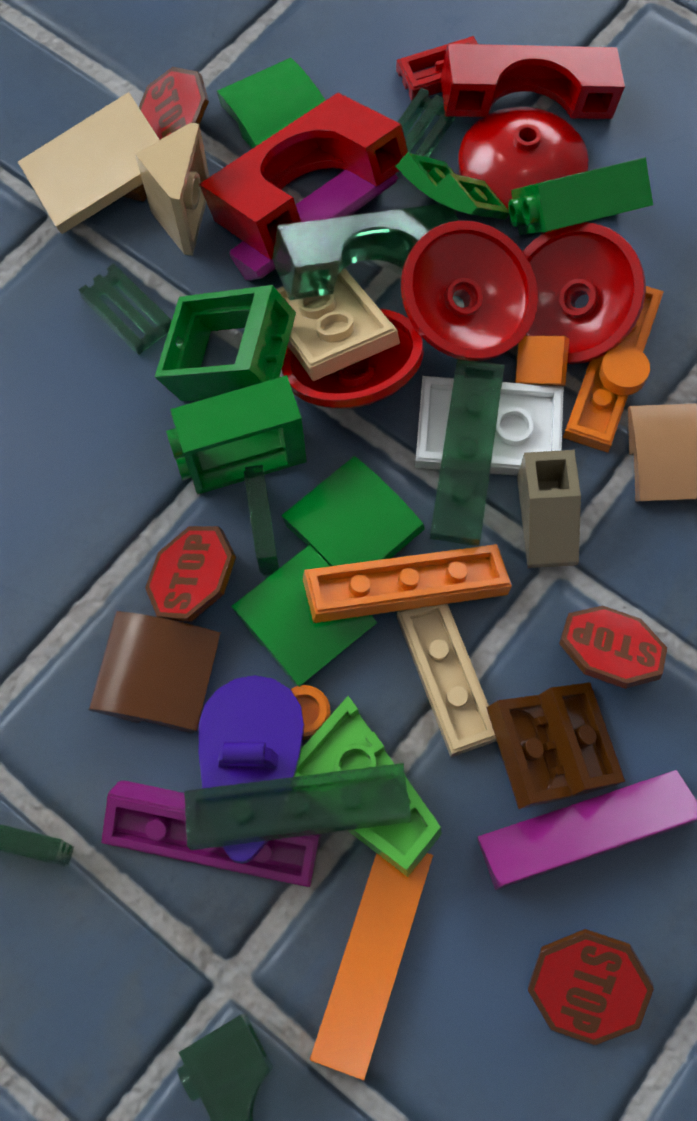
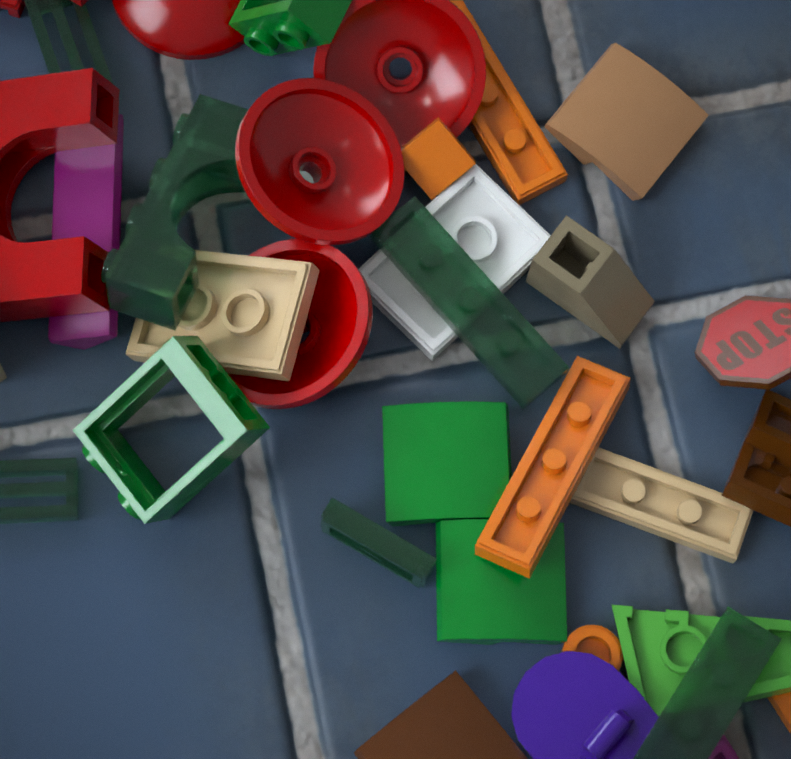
camera: 60 degrees left, 5 degrees up
(190, 573) = (377, 651): piece -> none
(236, 431) = (283, 494): green window -> none
(449, 189) = (209, 77): green slope -> none
(624, 370) = (510, 97): orange tile -> none

